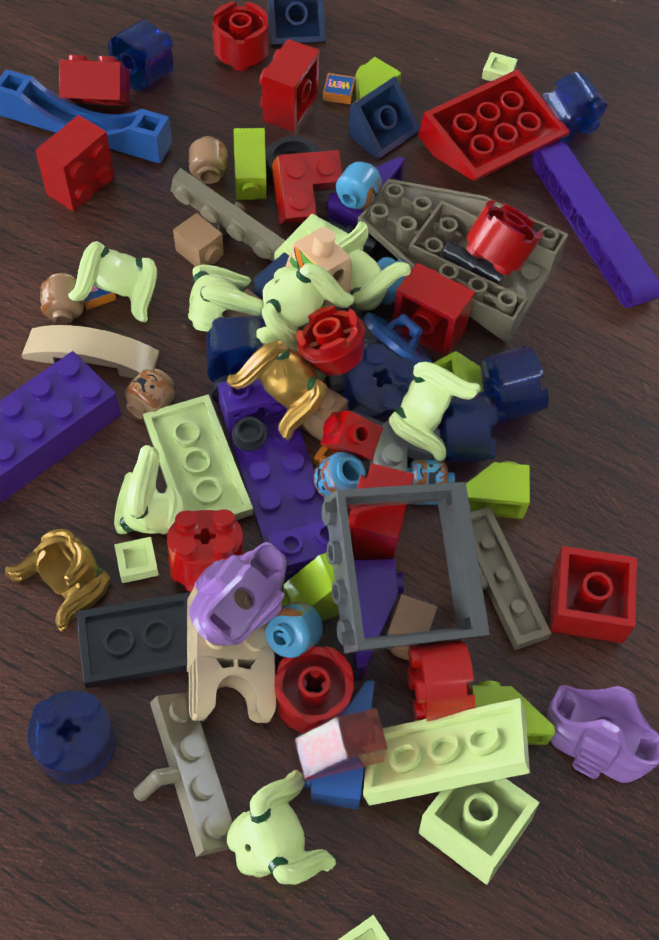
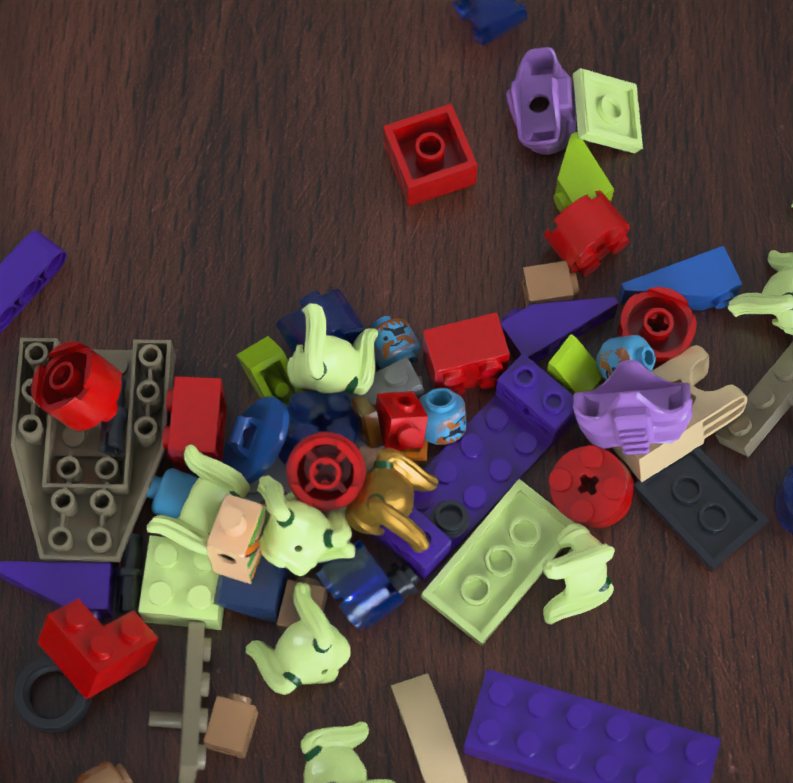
camera: 115 degrees left, 10 degrees up
(68, 570) = (679, 610): pearl gold hair -> none
(136, 560) = (632, 553): yellowish green plate -> none
(149, 392) = (453, 654): medium nougat head -> none
(250, 163) = (97, 727): lime slope -> none
(342, 745) = (697, 270): clear red slope -> none
(359, 185) = (80, 573): dark azure head -> none
(367, 408) = (368, 421): none -> reddish brown tile
(450, 752) = (650, 194): yellowish green plate -> none
(460, 557) = (499, 244): dark grey window -> none
(478, 824) = (677, 158): yellowish green brick -> none
(502, 488) = (366, 280): lime slope -> none
(506, 583) = (452, 239): dark tan plate -> none
(515, 383) = (242, 310): clear blue brick -> none
(569, 783) = (607, 111): none -> yellowish green tile

